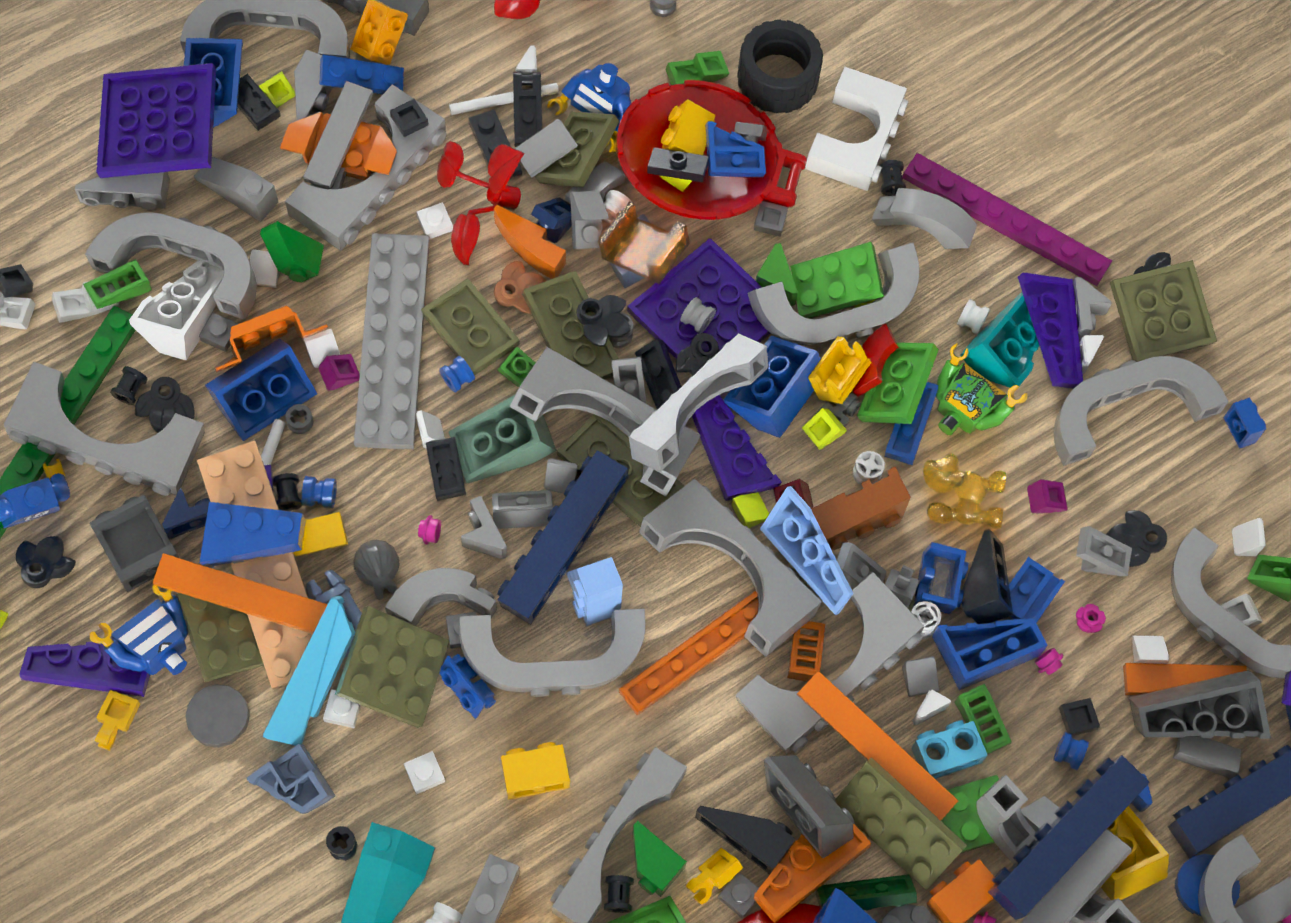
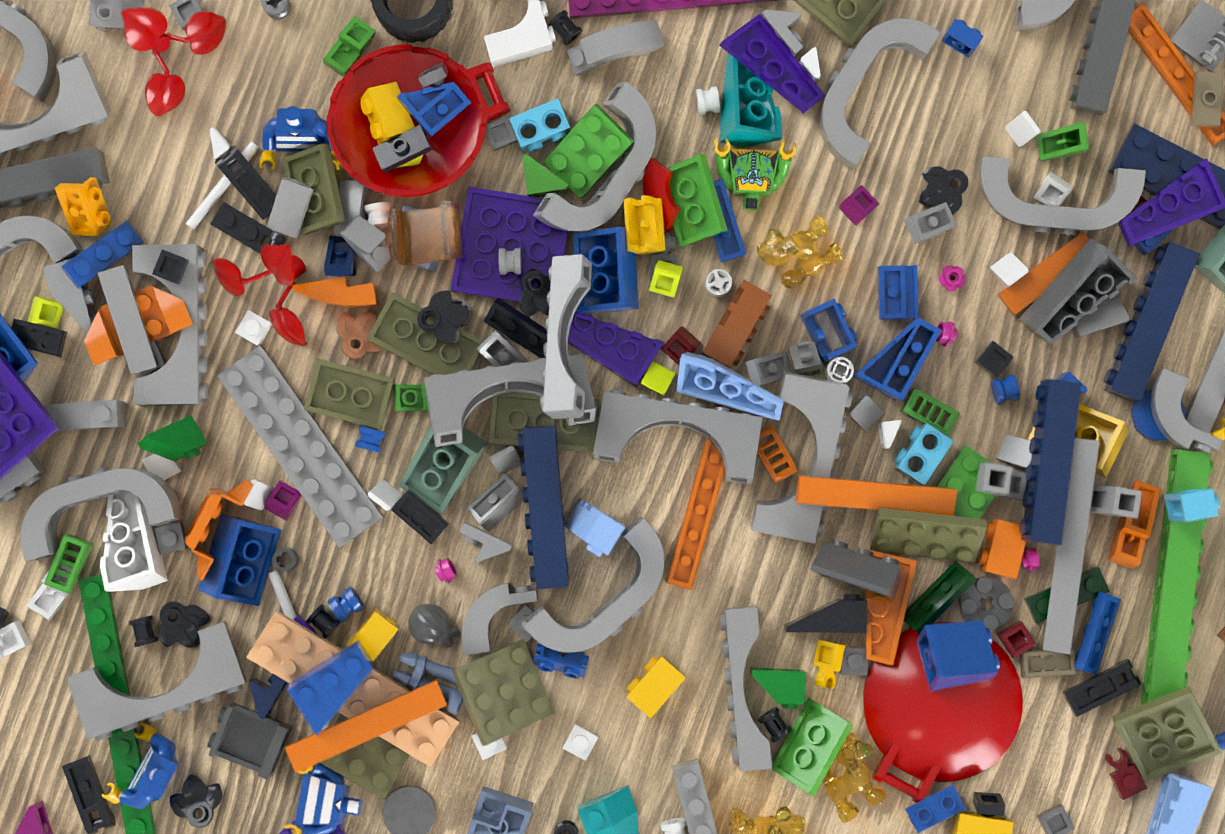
camera: 30 degrees left, 20 degrees up
(312, 676) = (455, 742): medium azure wedge -> none
(812, 228) = (537, 119): none -> medium azure brick
(987, 583) = (865, 310): black slope -> none

